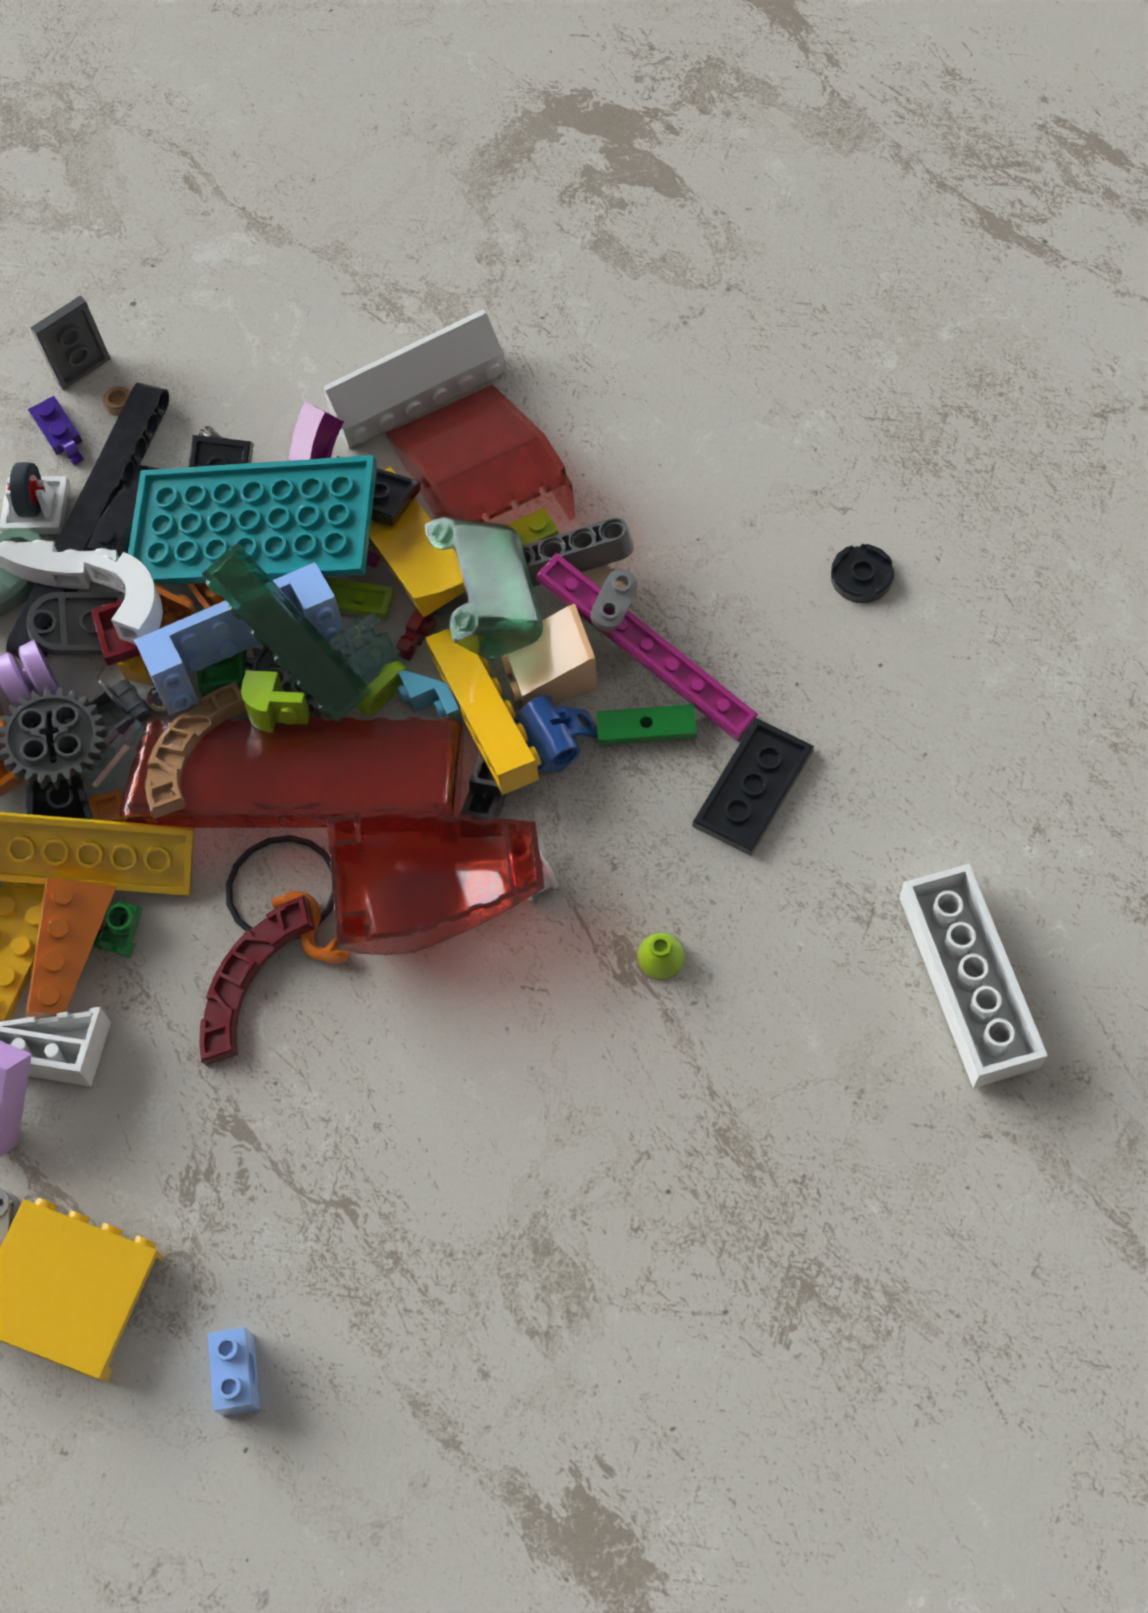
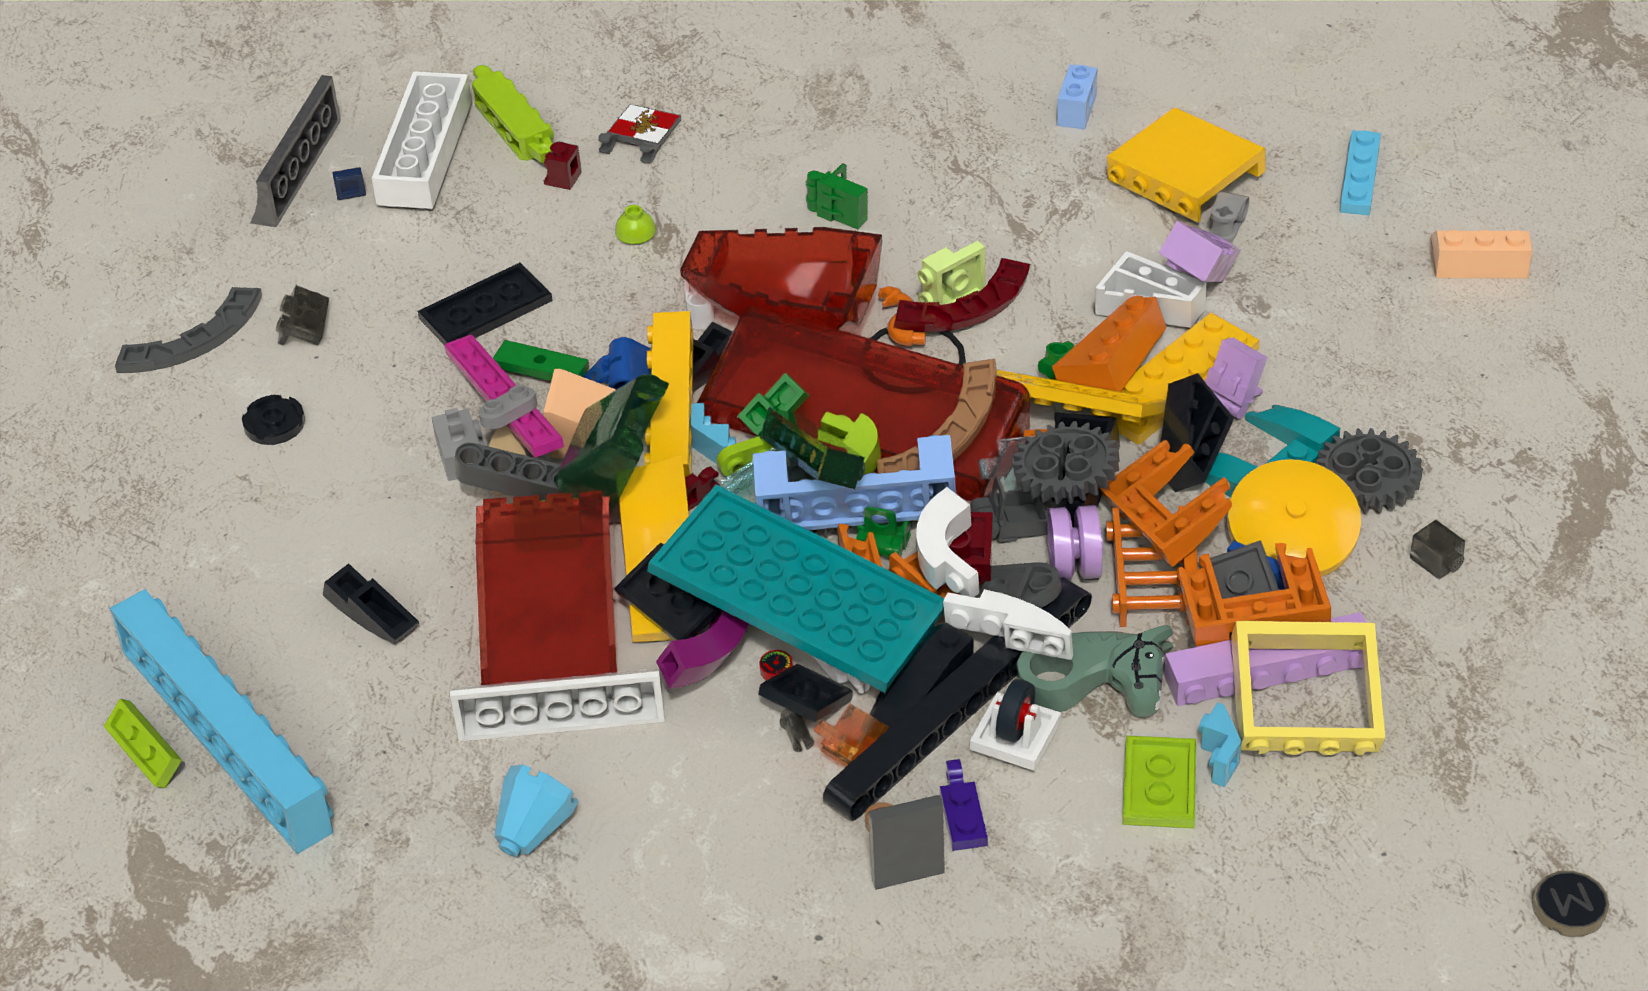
camera: 160 degrees left, 20 degrees down
(167, 439) = (850, 735): none -> clear orange brick
(269, 969) = (951, 274): none -> yellowish green plate
(372, 721) = (784, 395): none -> green slope
(384, 294) = (530, 809): none -> medium azure cone
(449, 1065) = (837, 197): none -> green piece
(634, 416) = (368, 604): none -> black slope
(664, 599) = (452, 431): none -> light grey brick
(676, 262) = (223, 721): none -> medium azure brick
(727, 241) = (142, 743): none -> lime plate
(744, 1122) = (640, 127): none -> flag
(790, 1003) = (562, 165): none -> dark red brick
(904, 1068) = (511, 114): none -> lime hinge
(921, 691) = (302, 316): none -> clear smoke bracket
(1006, 634) = (199, 340): none -> dark grey tile
(1009, 885) = (349, 183): none -> dark blue tile
(1093, 897) = (296, 153): none -> flat silver arch

